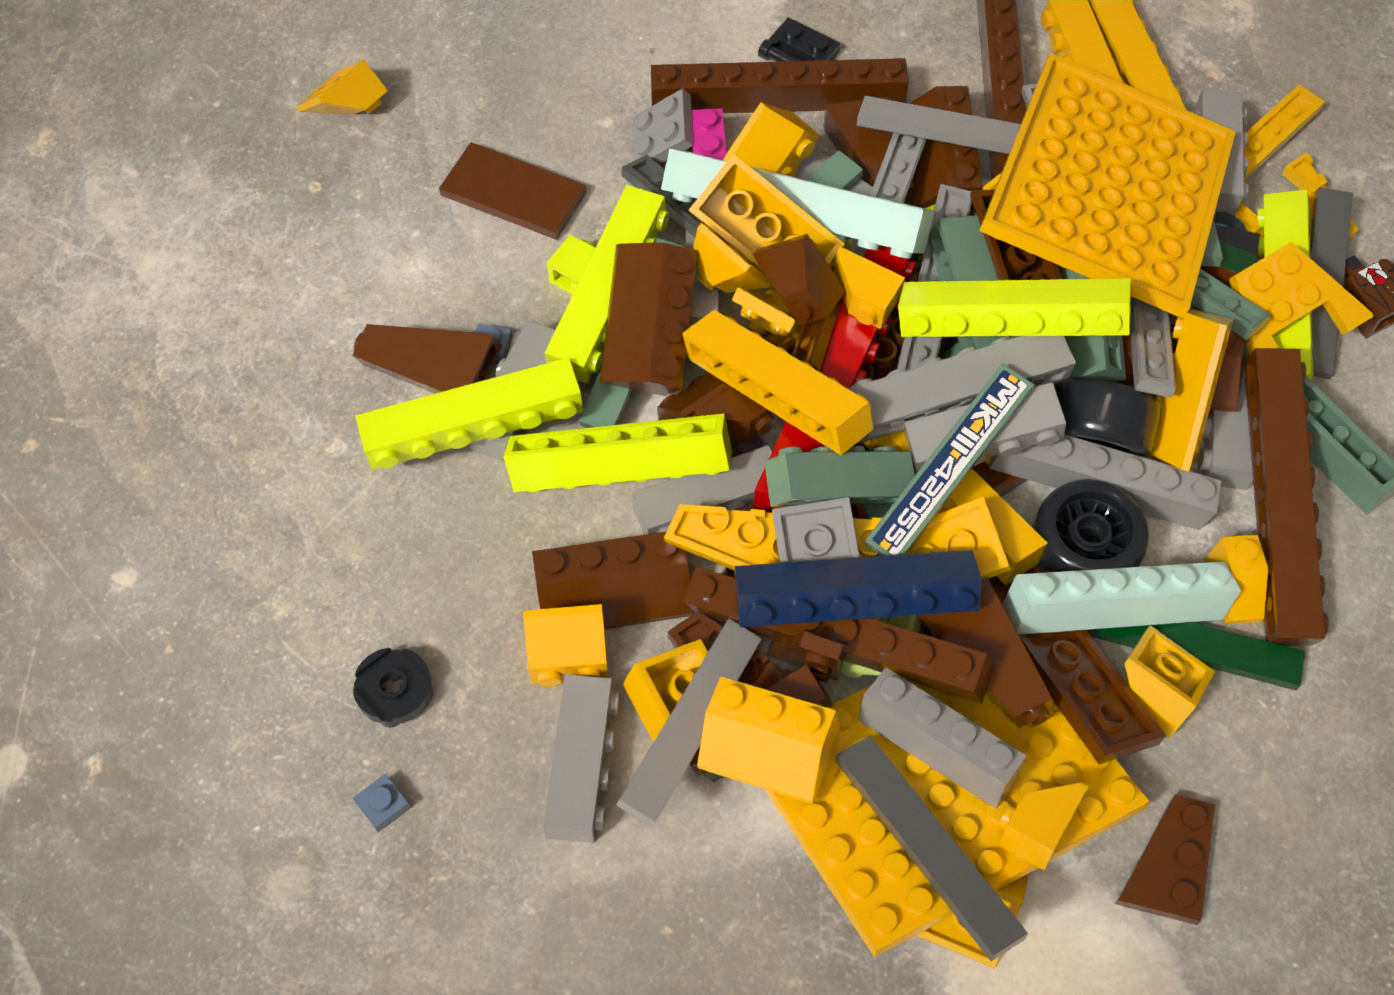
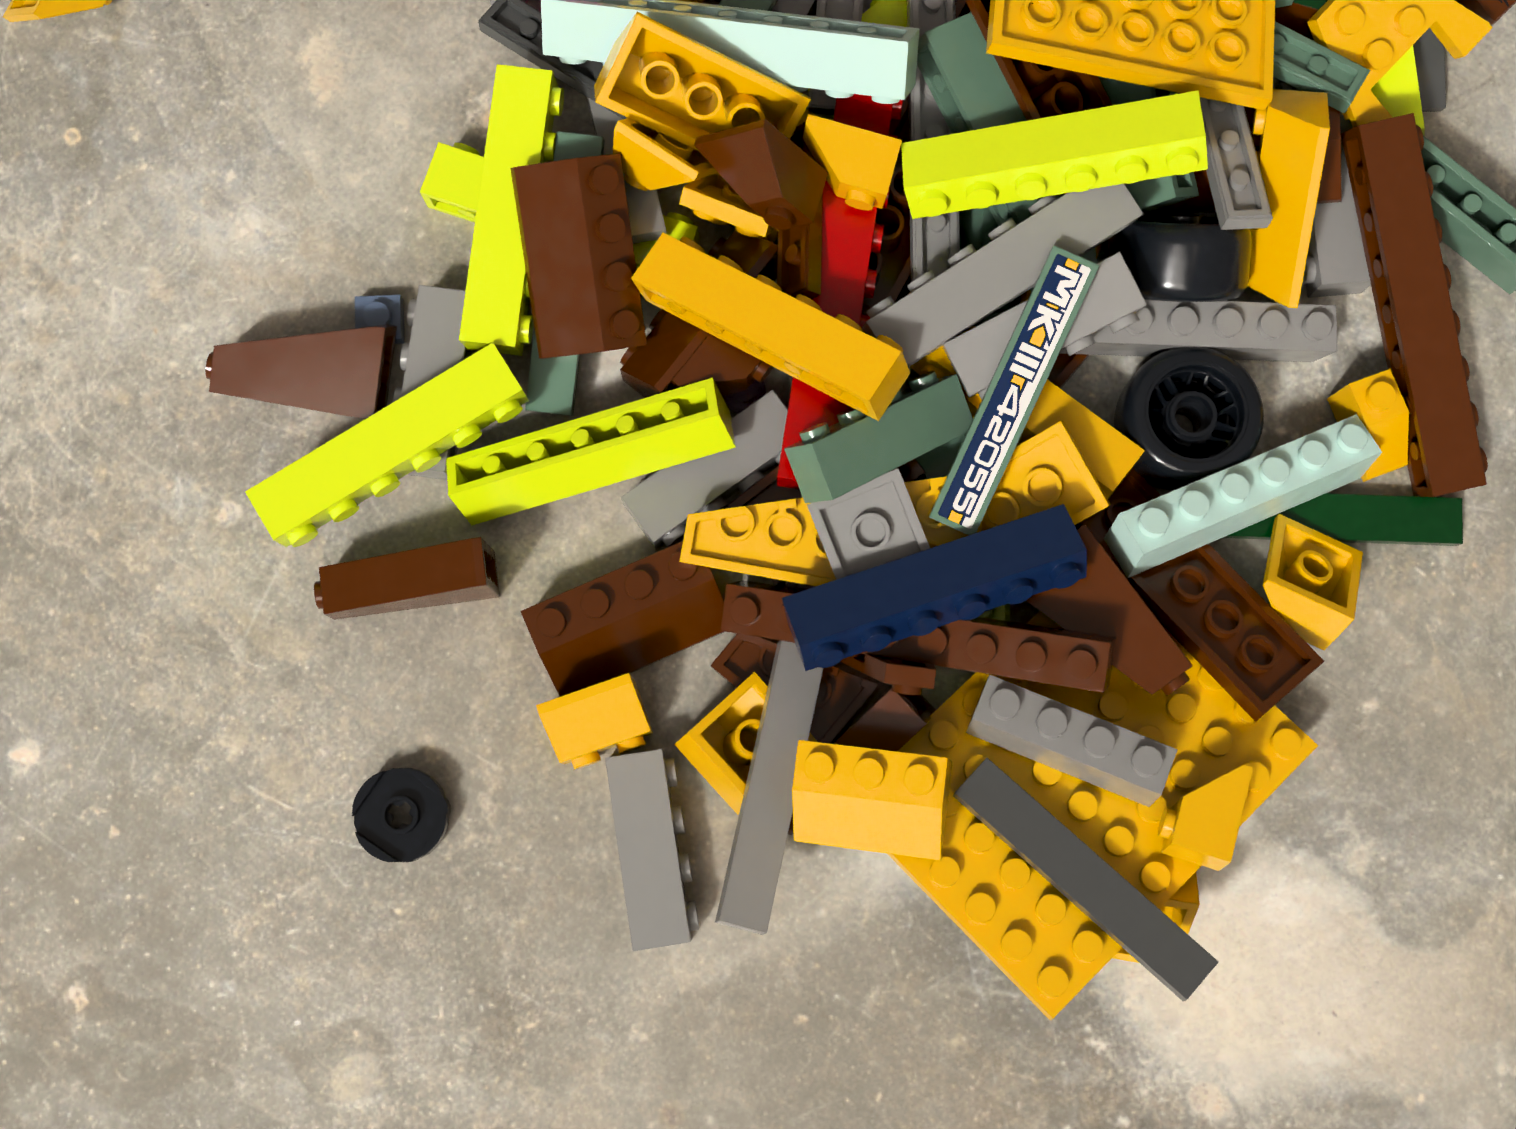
camera: 15 degrees left, 20 degrees up
(381, 803) = (433, 958): sand blue plate -> none
(457, 515) = (409, 580): none -> reddish brown slope
(513, 190) = (339, 80): reddish brown tile -> none
(1174, 865) = (1352, 795): reddish brown wing -> none

